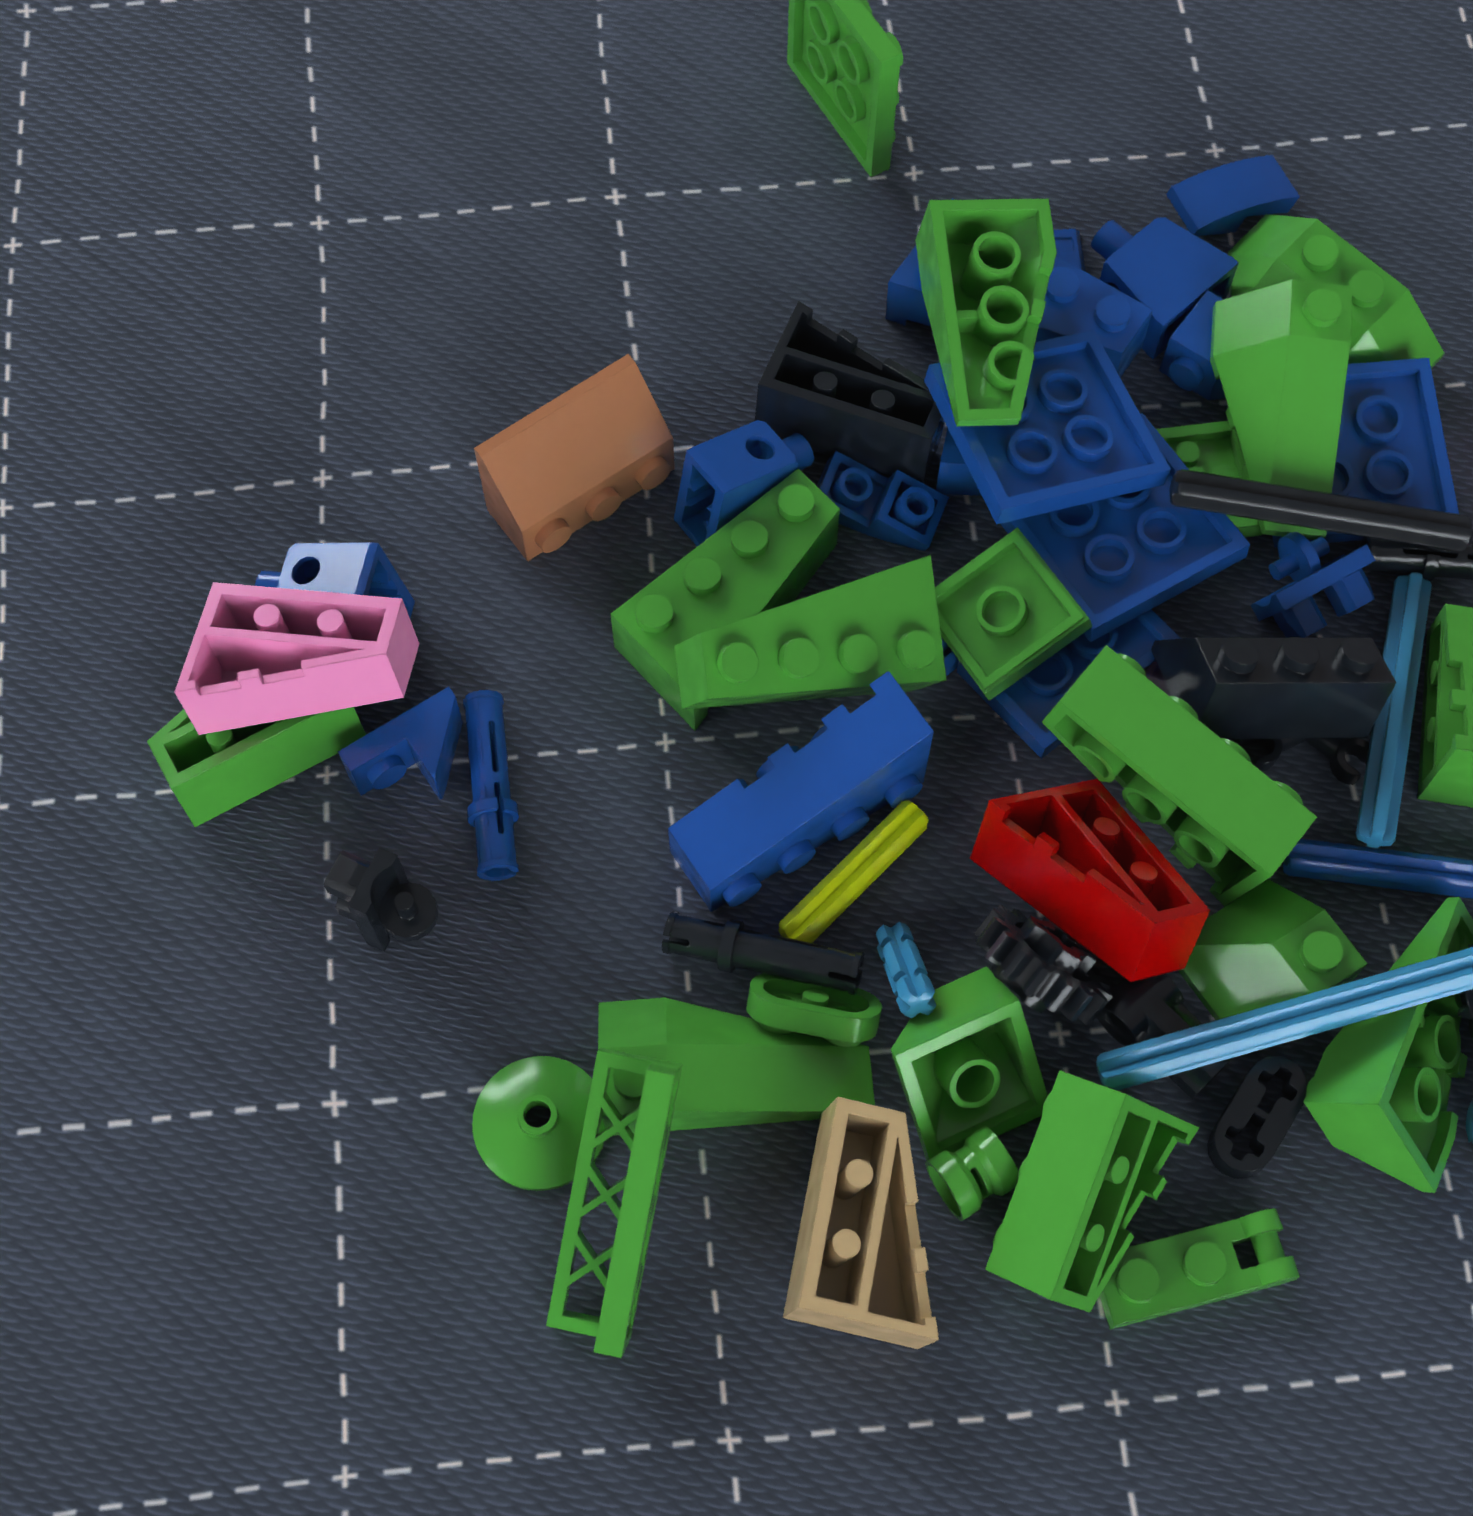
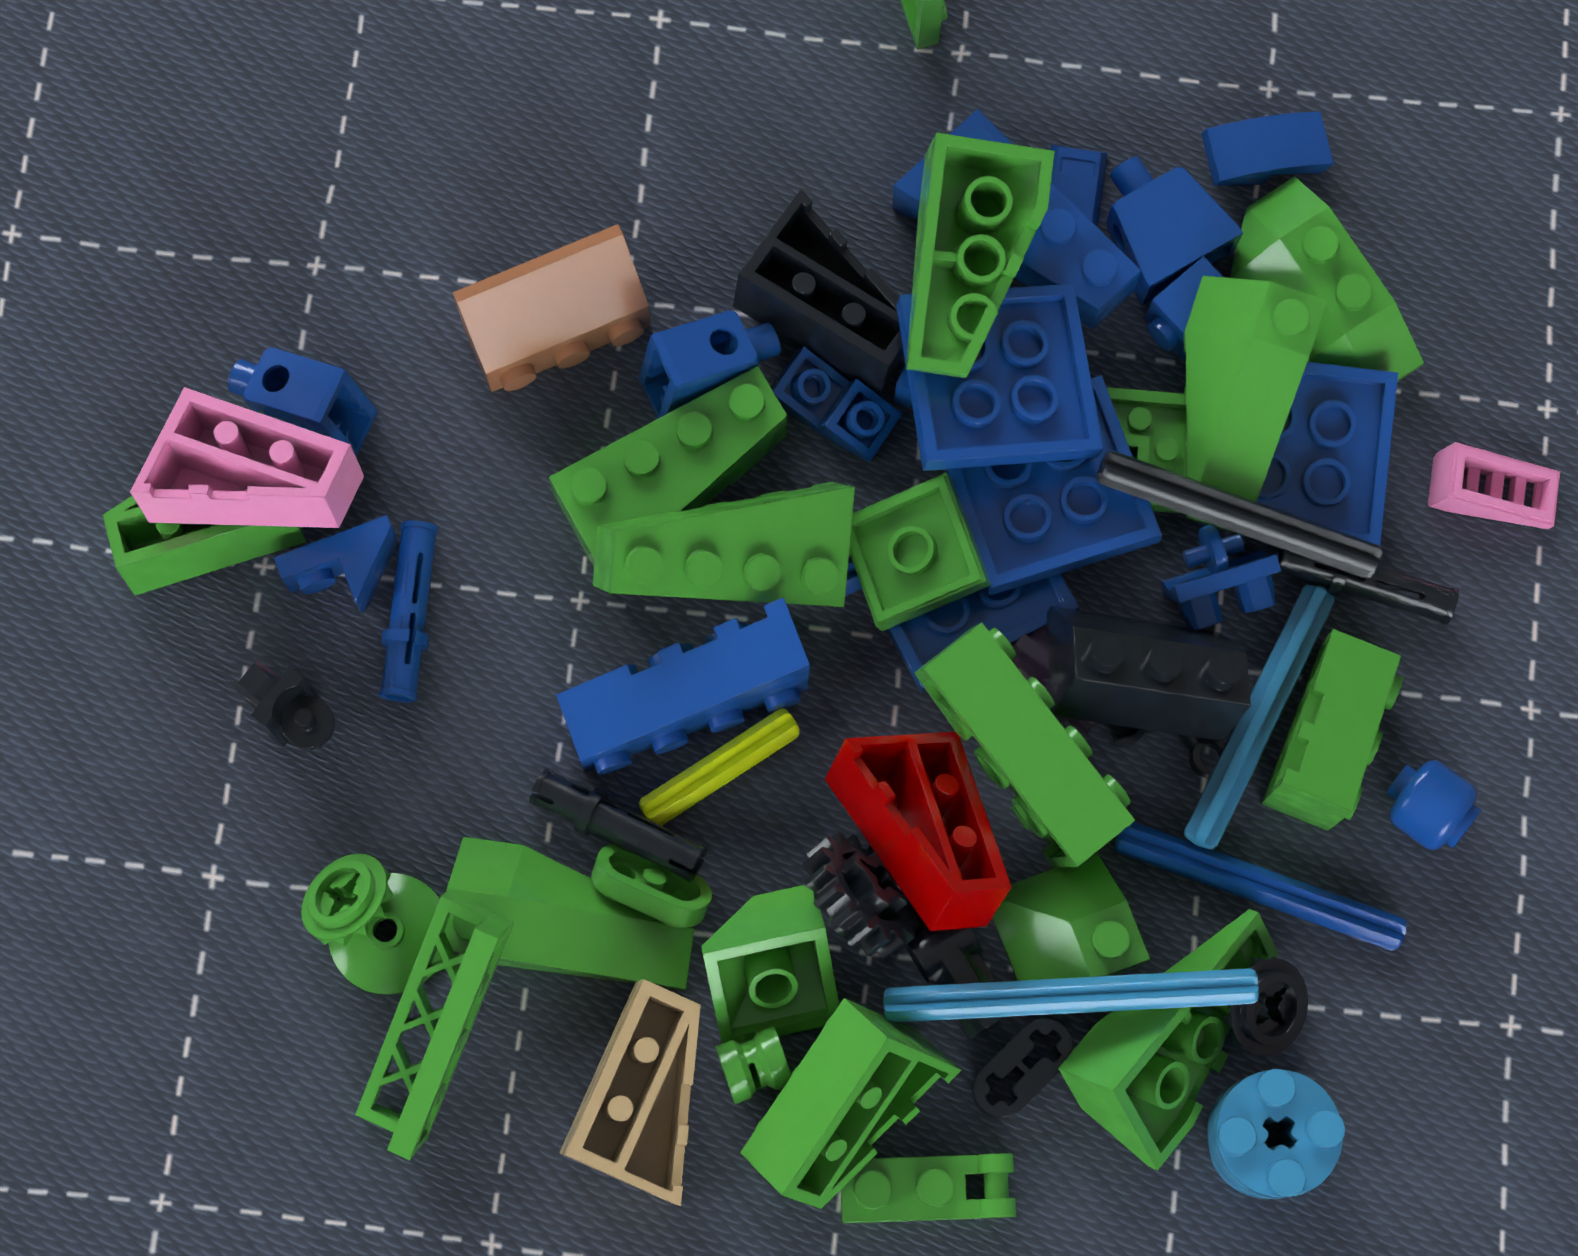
camera: 10 degrees right, 10 degrees up
(481, 1072) = (345, 877): none -> bright green gear
(905, 970) = (739, 871): dark azure axle -> none

